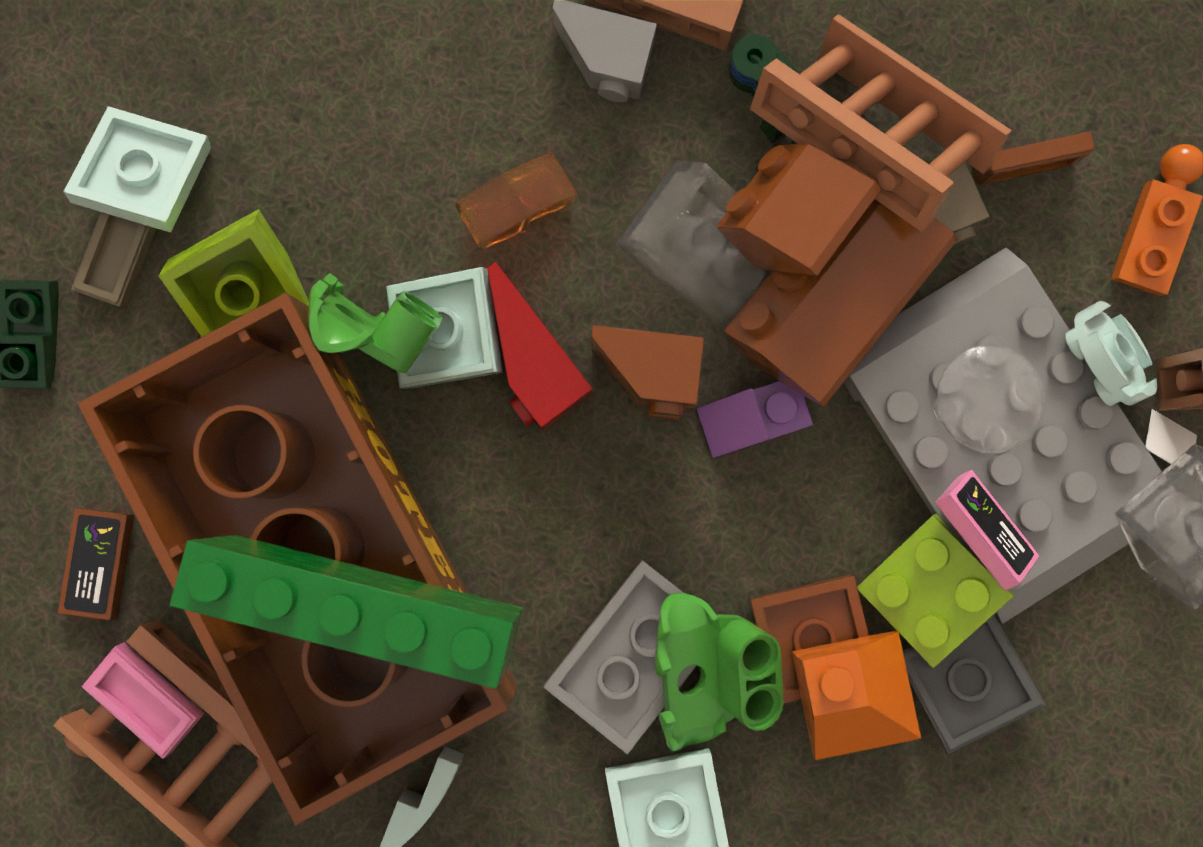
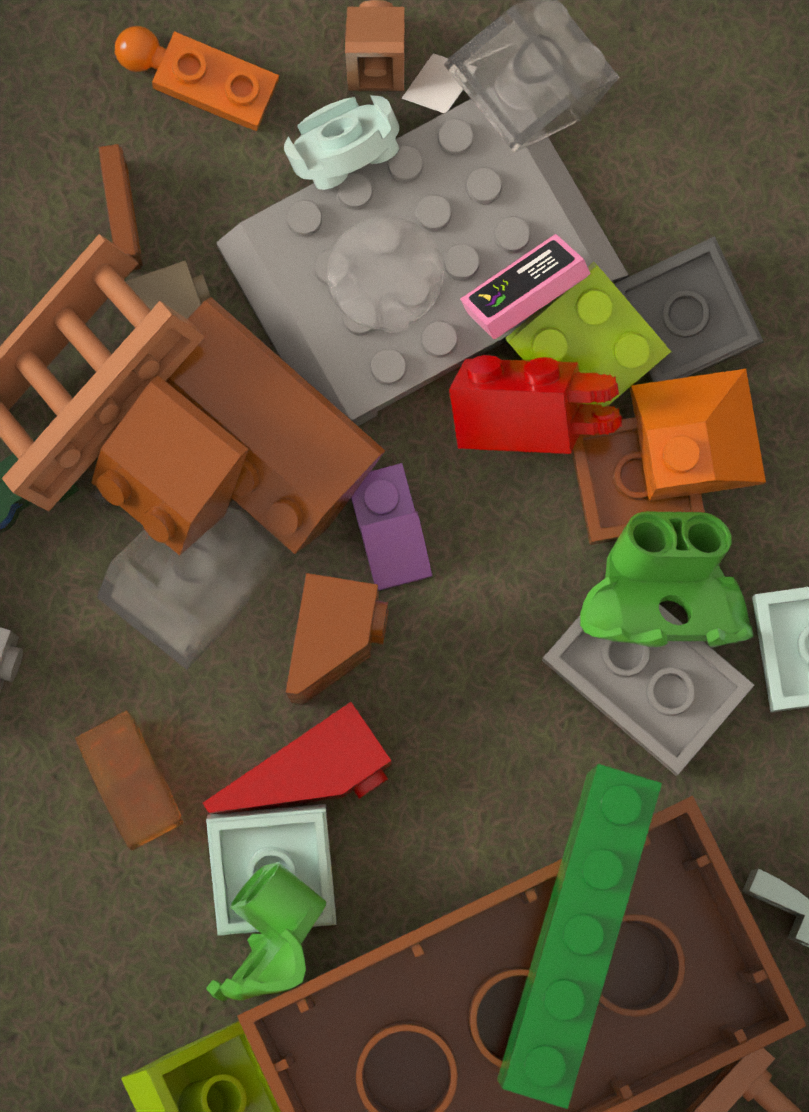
camera: 85 degrees left, 5 degrees down
(874, 539) = (529, 405): none -> red hinge

